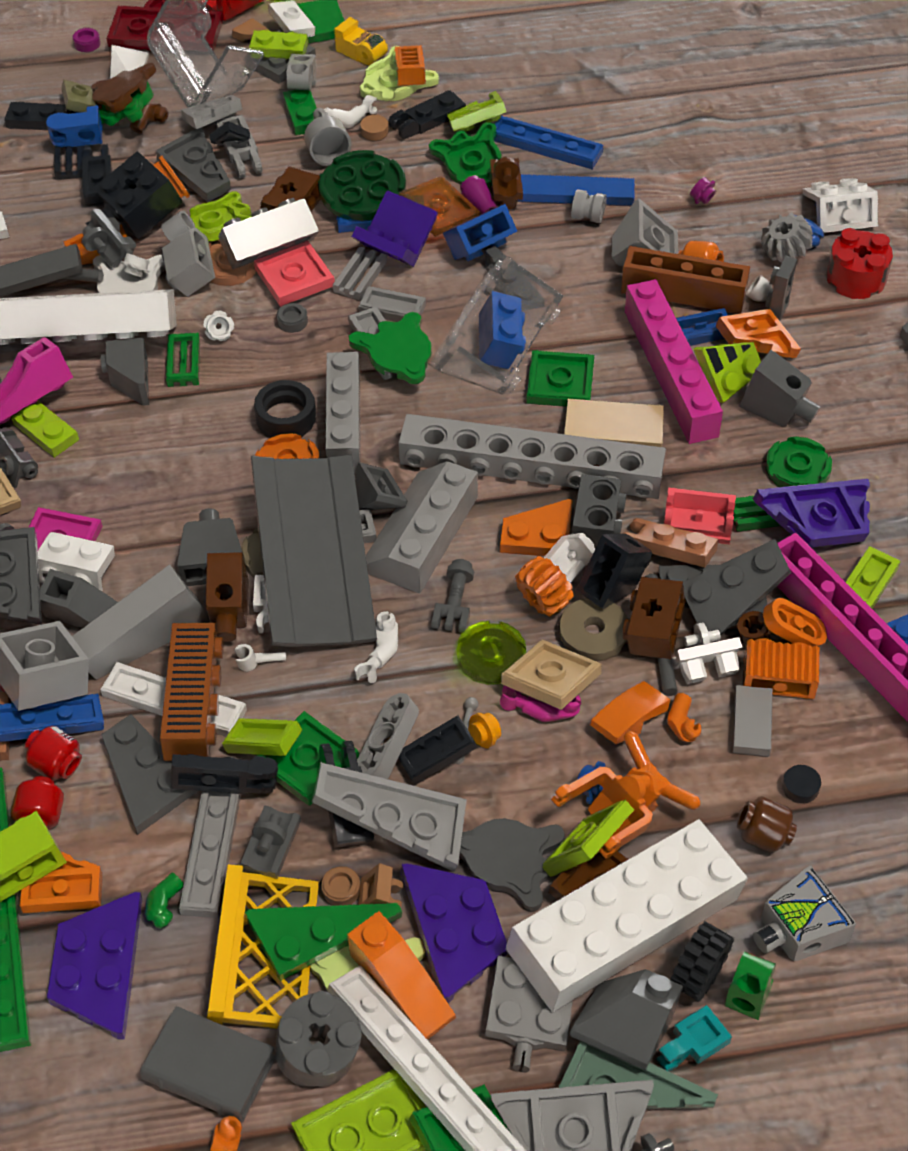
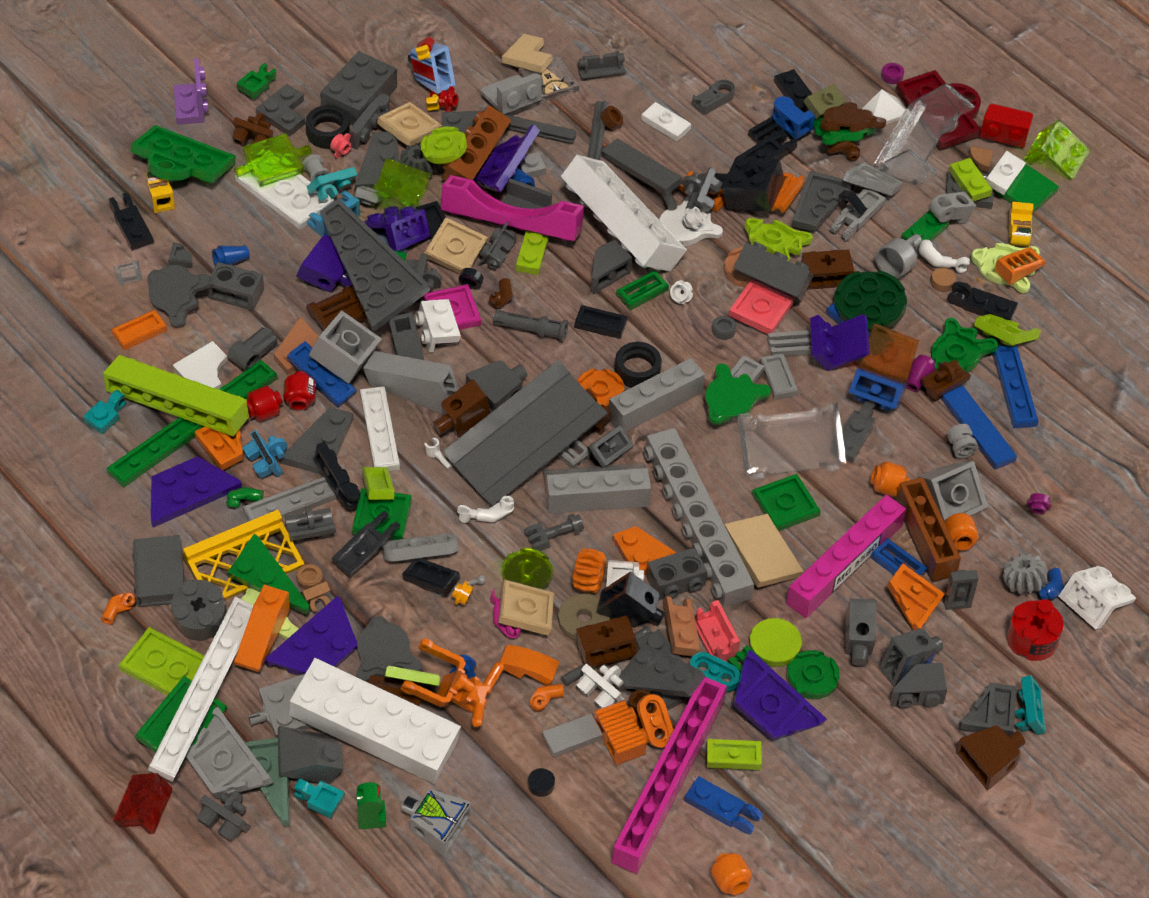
camera: 55 degrees right, 0 degrees up
(33, 497) = (471, 277): none -> black tile
(83, 481) = (504, 296): none -> reddish brown arm
(136, 843) = (259, 447): none -> dark azure hips
(159, 468) = (541, 326): none -> dark grey pin
(187, 255) = (724, 240): light grey hinge -> none
(190, 690) = (381, 429): dark orange brick -> none
(195, 415) = (600, 322): none -> black tile
(399, 812) = (368, 576): light grey wing -> none
(501, 330) = (787, 442): blue brick -> none
(597, 280) = (887, 478): none -> orange head
(702, 960) = (367, 768): black tyre -> none
(728, 366) = (864, 585): lime wing -> none
(737, 472) = (775, 641): none -> lime tile
(746, 539) = (716, 669): none -> teal plate
(766, 824) = (492, 772): reddish brown head -> none
(839, 360) = (907, 651): none -> dark grey torso
(873, 380) = (921, 686): none -> dark grey slope

